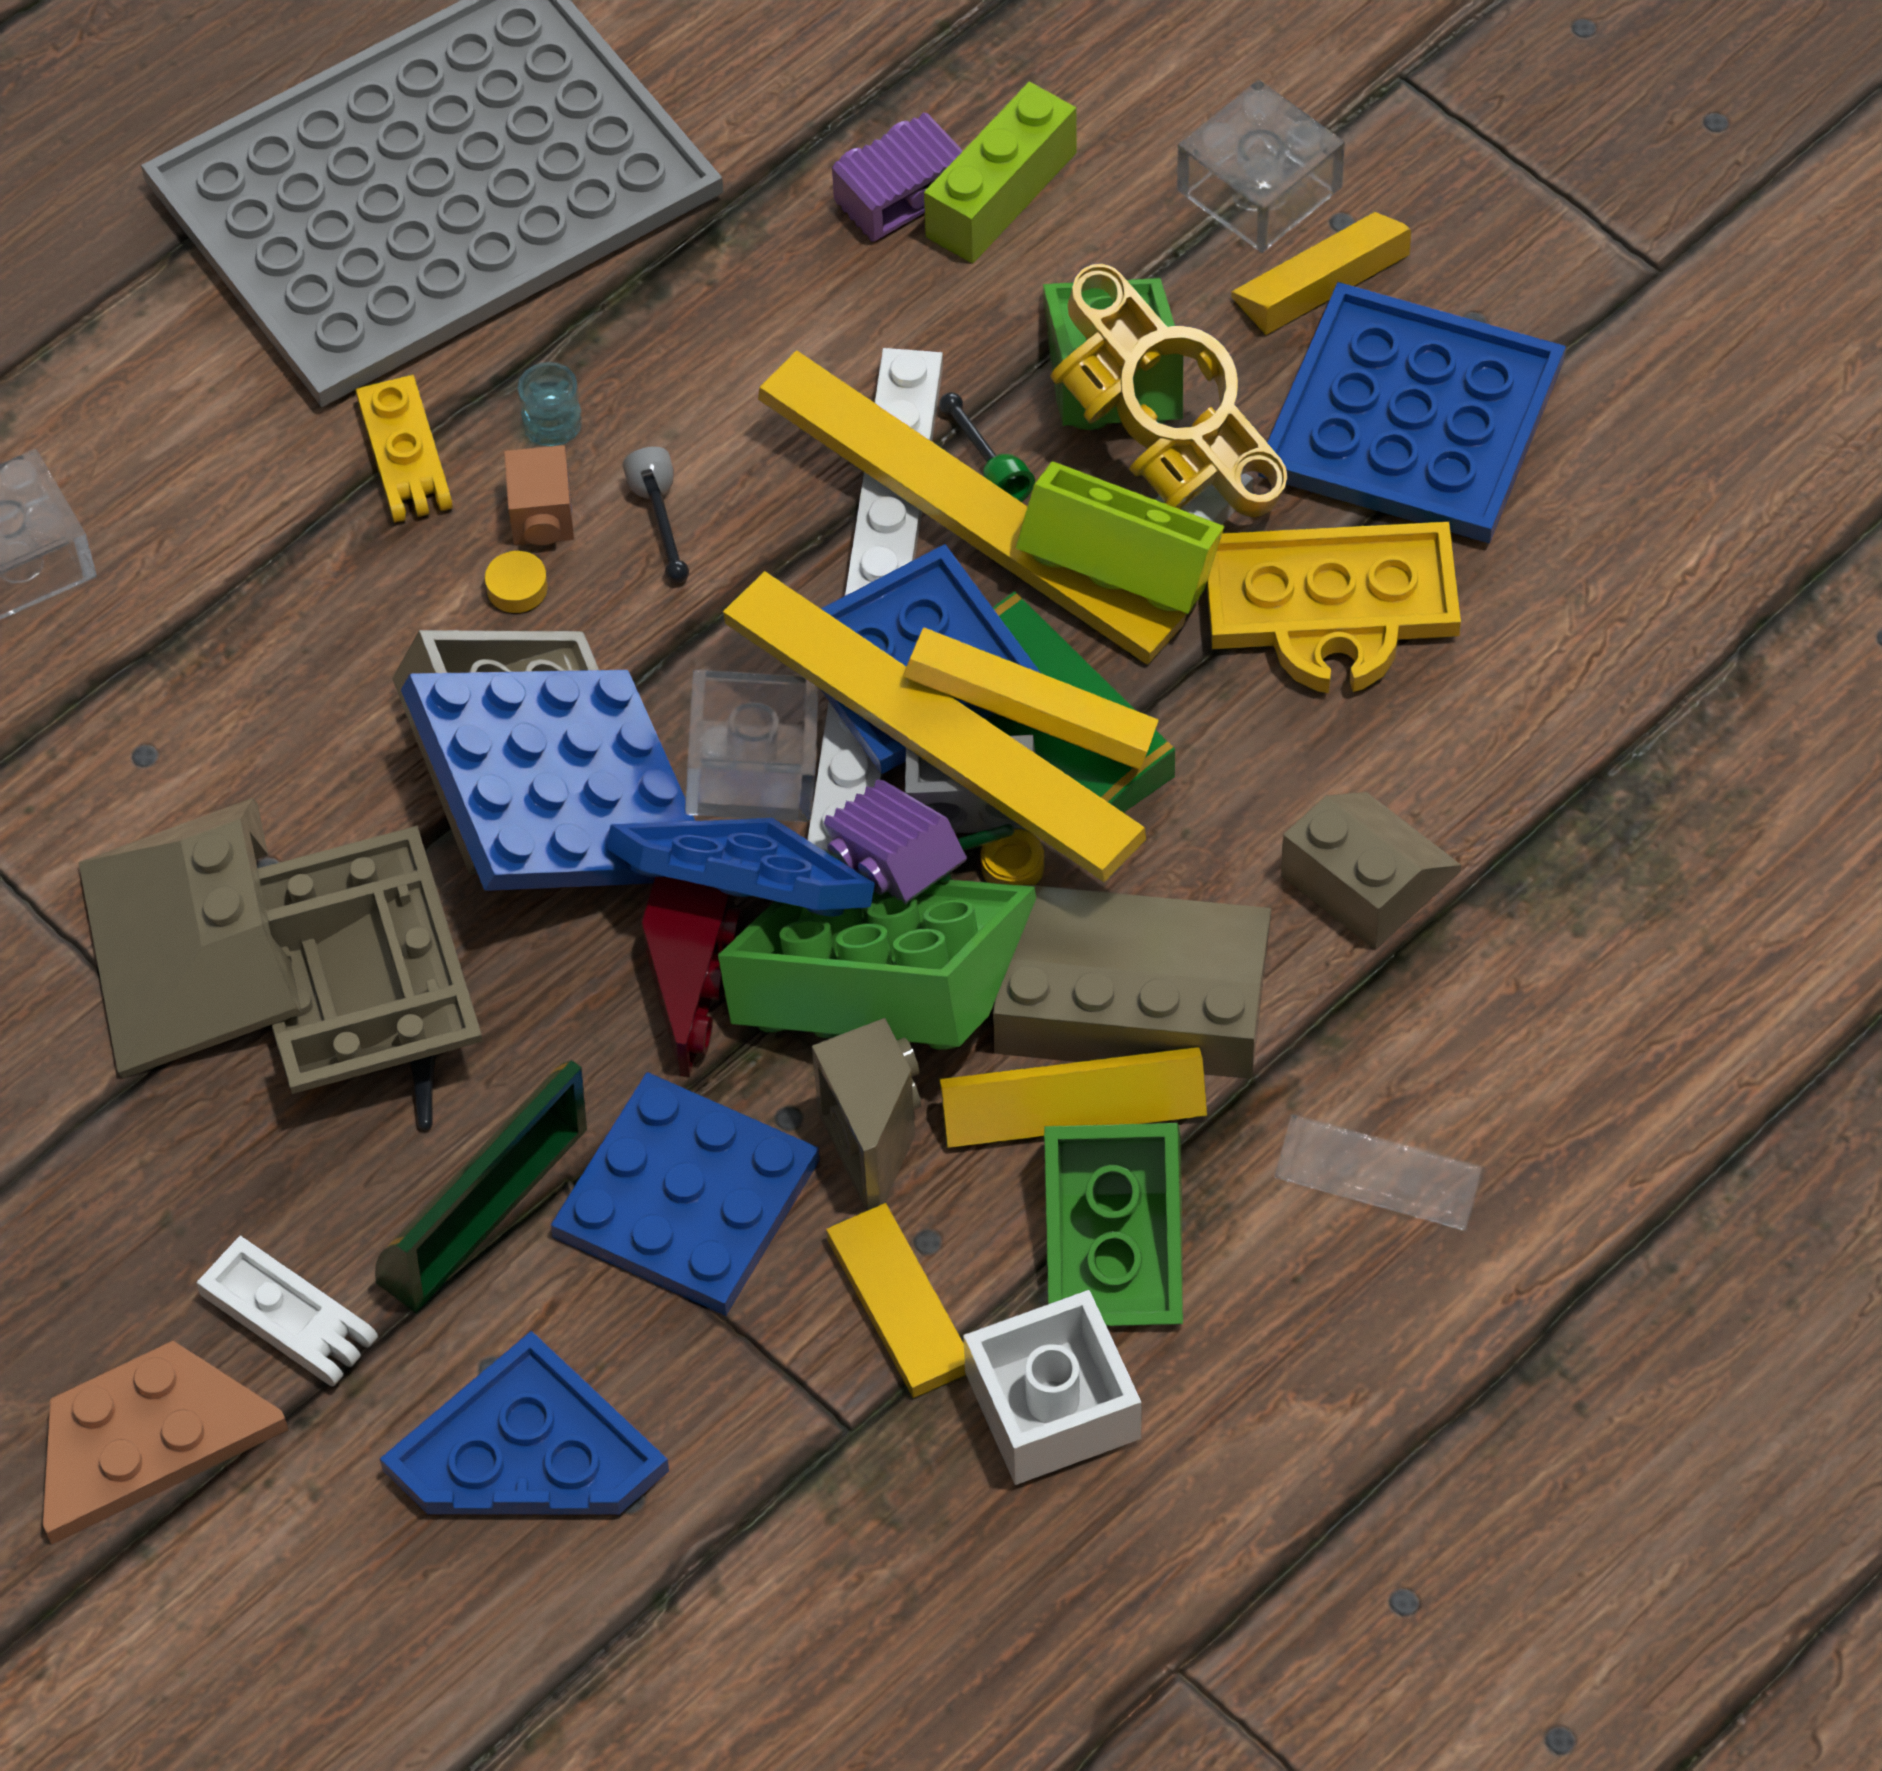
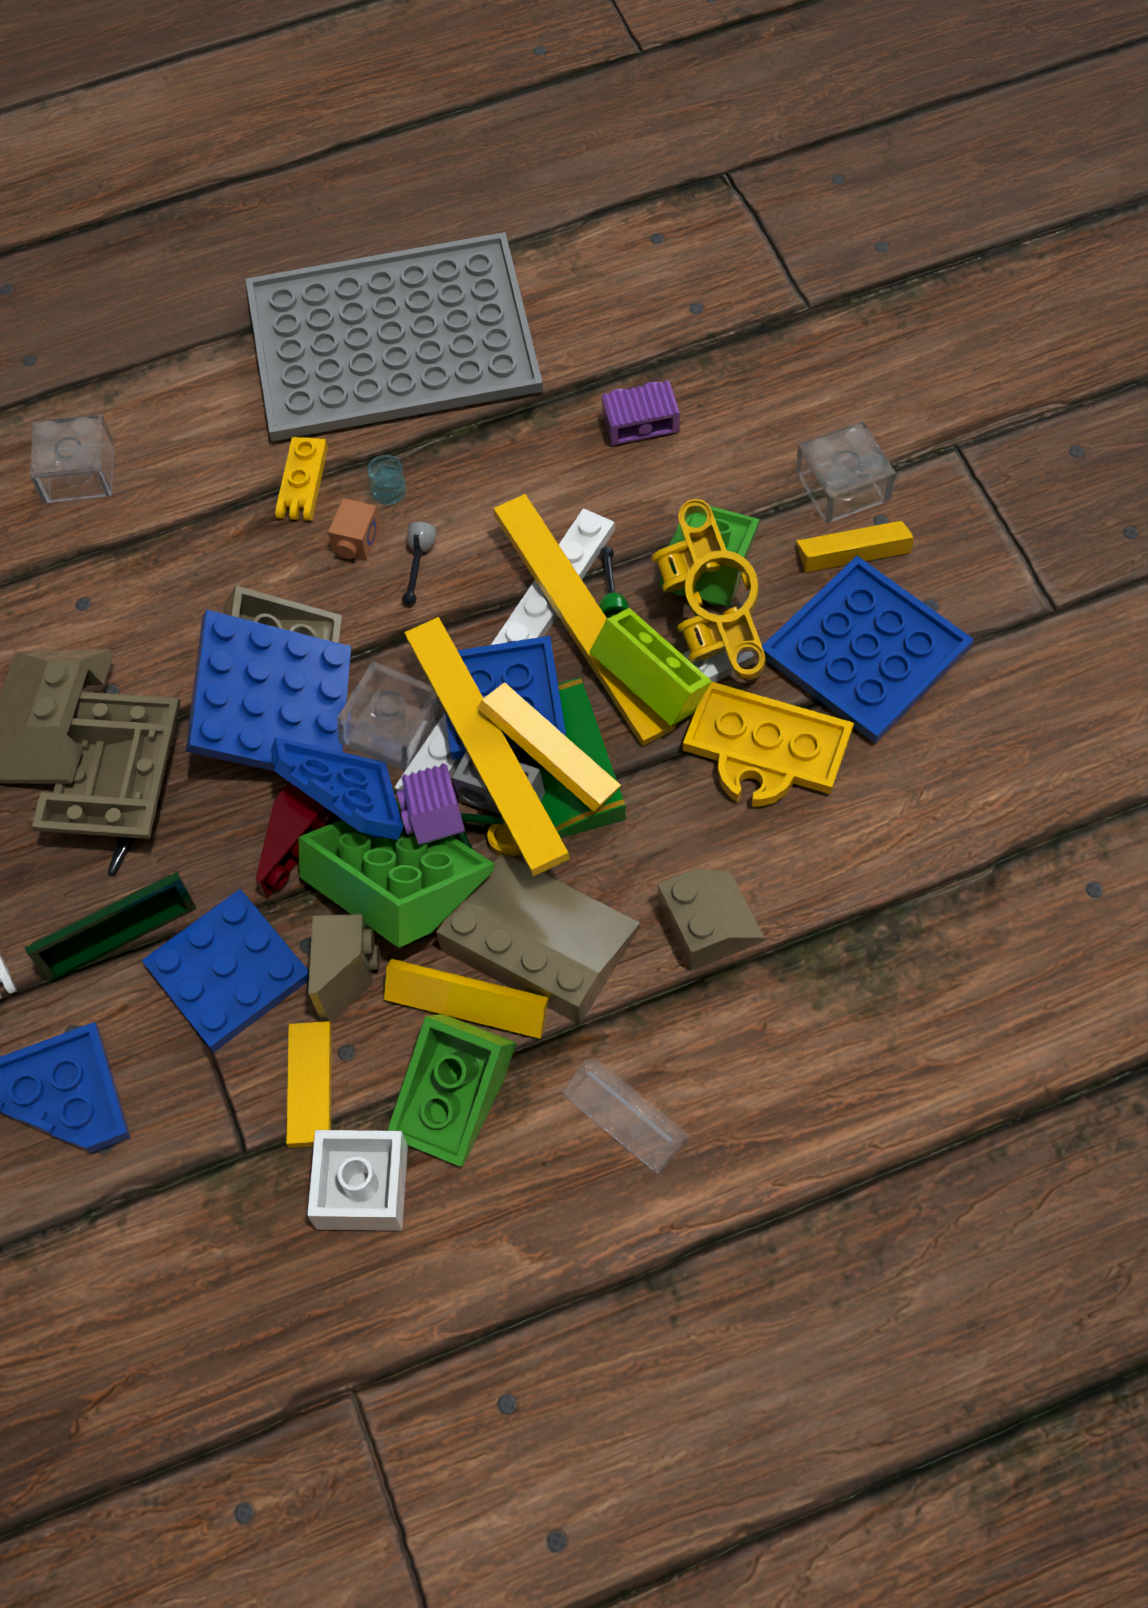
camera: 25 degrees right, 5 degrees up
(516, 581) = (321, 574): yellow tile -> none
(1000, 172) = (696, 428): lime brick -> none

